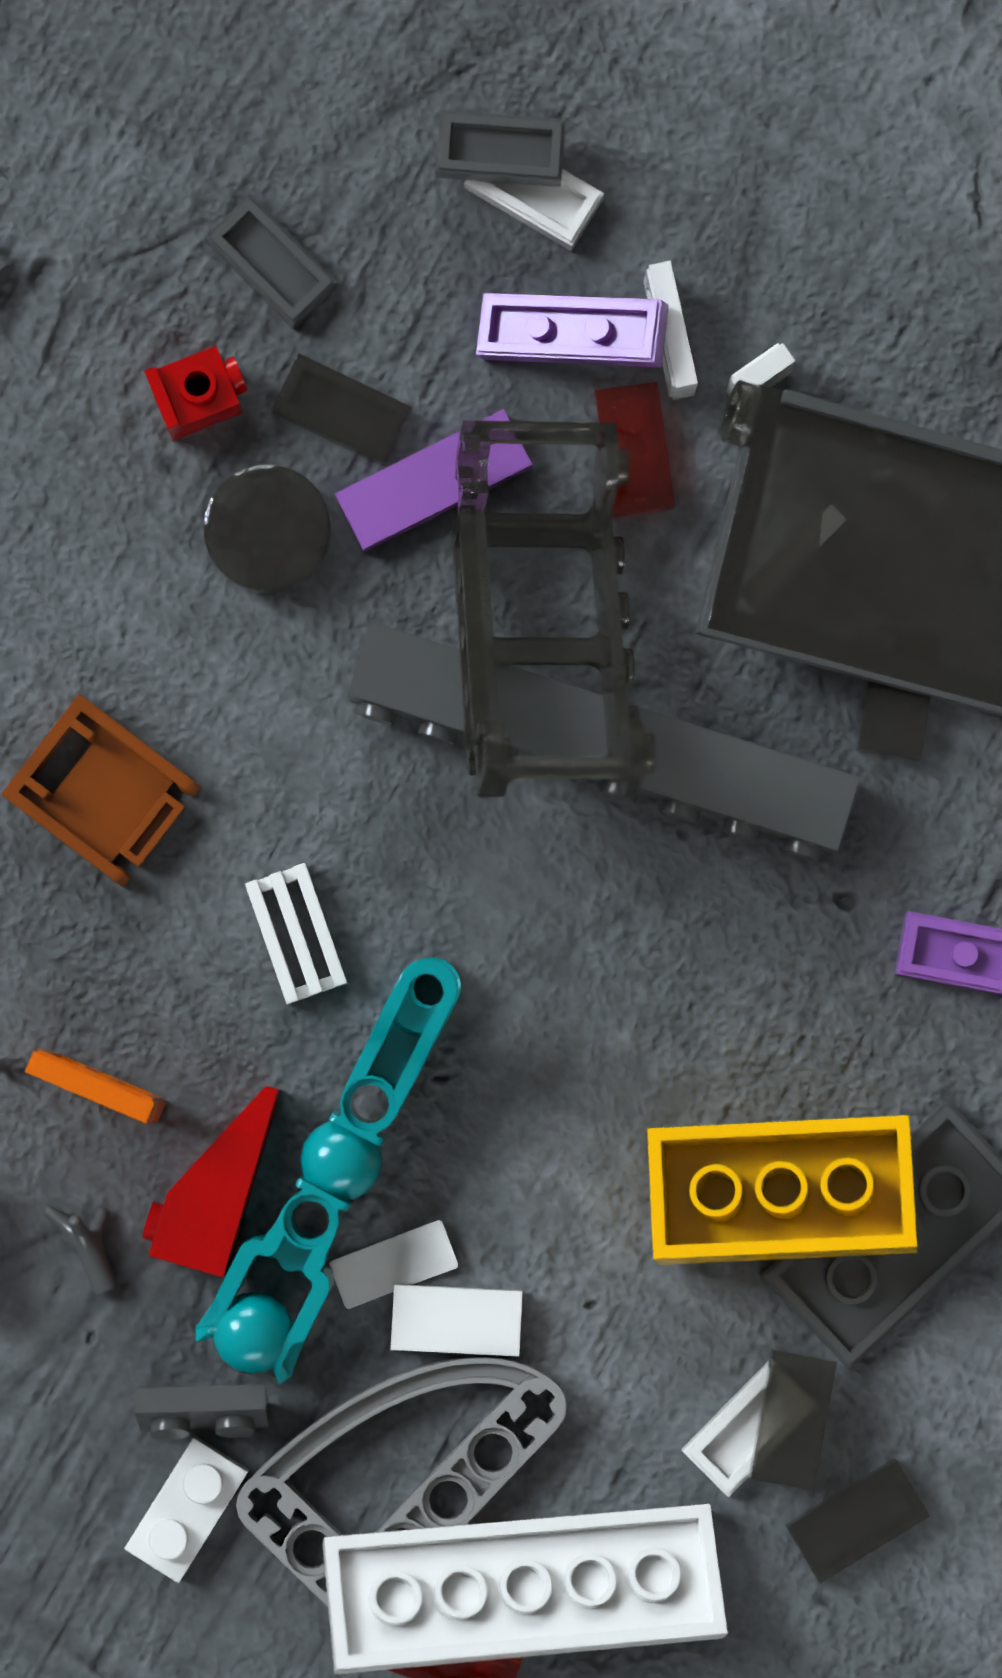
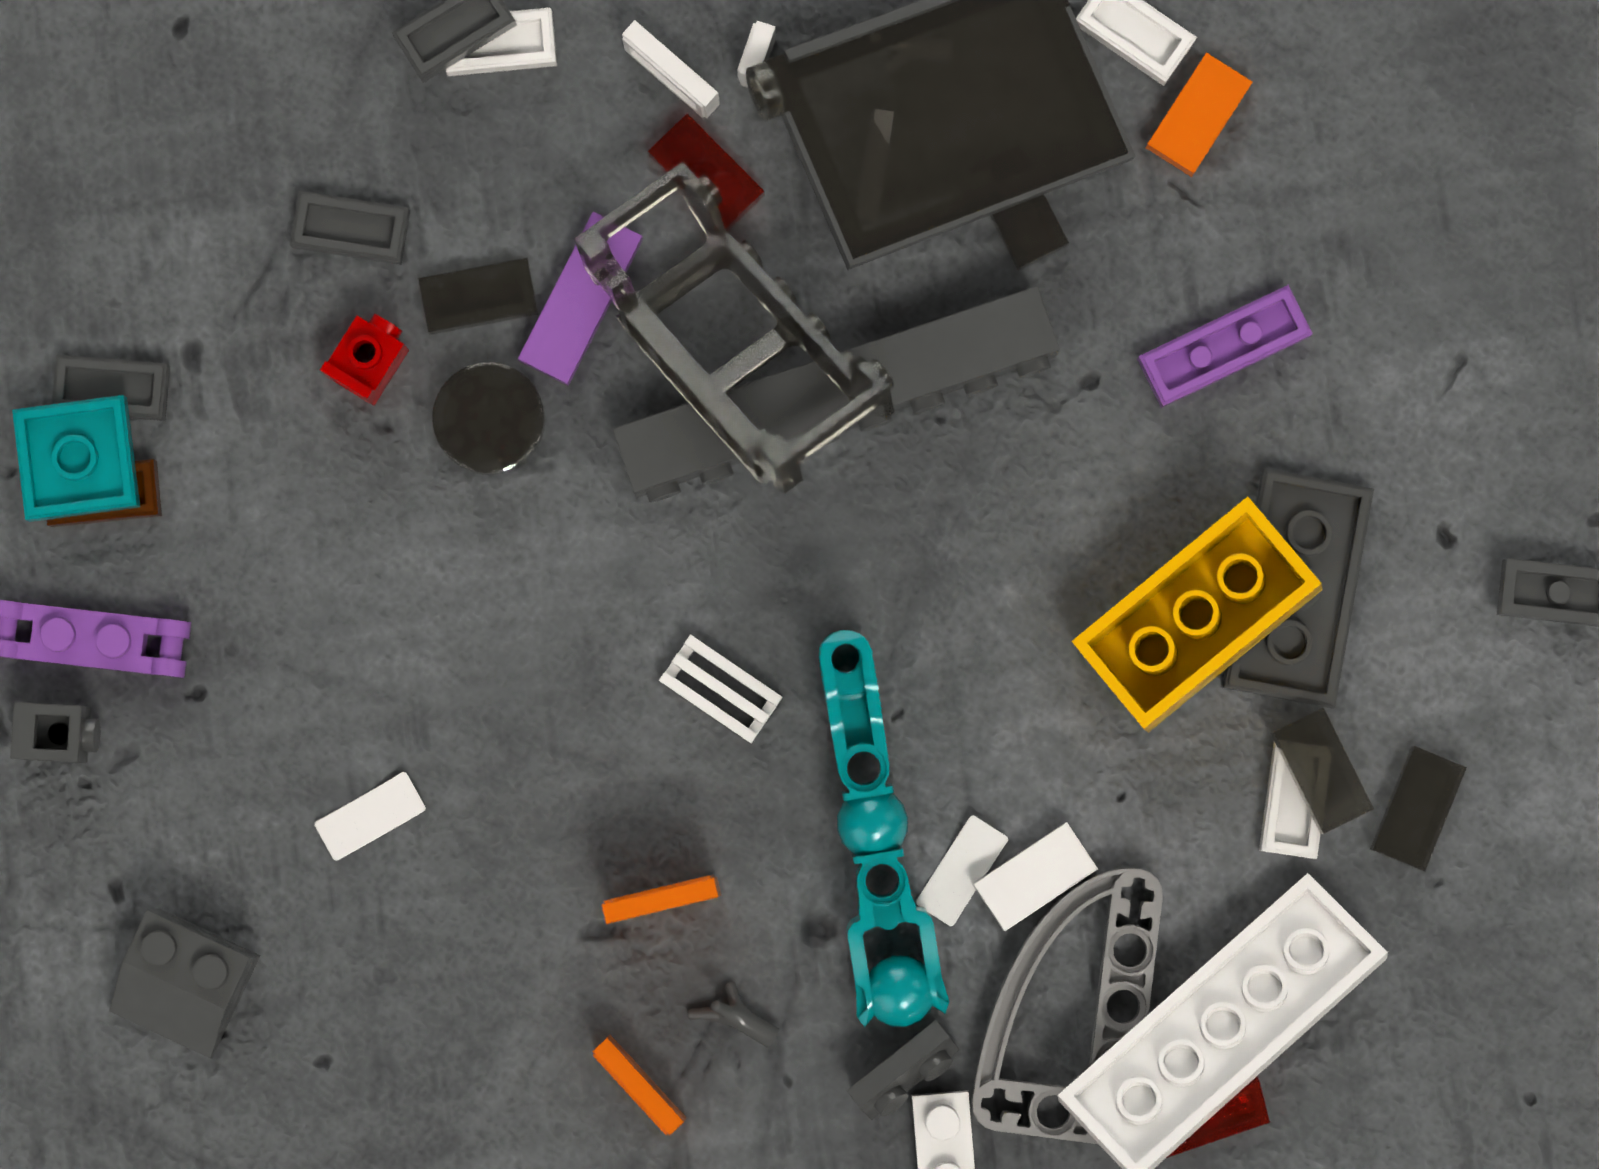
camera: 30 degrees left, 0 degrees up
(112, 796) = (518, 690): dark orange container -> none
(209, 1202) = (800, 922): red slope -> none
(572, 330) = (601, 119): tile -> none

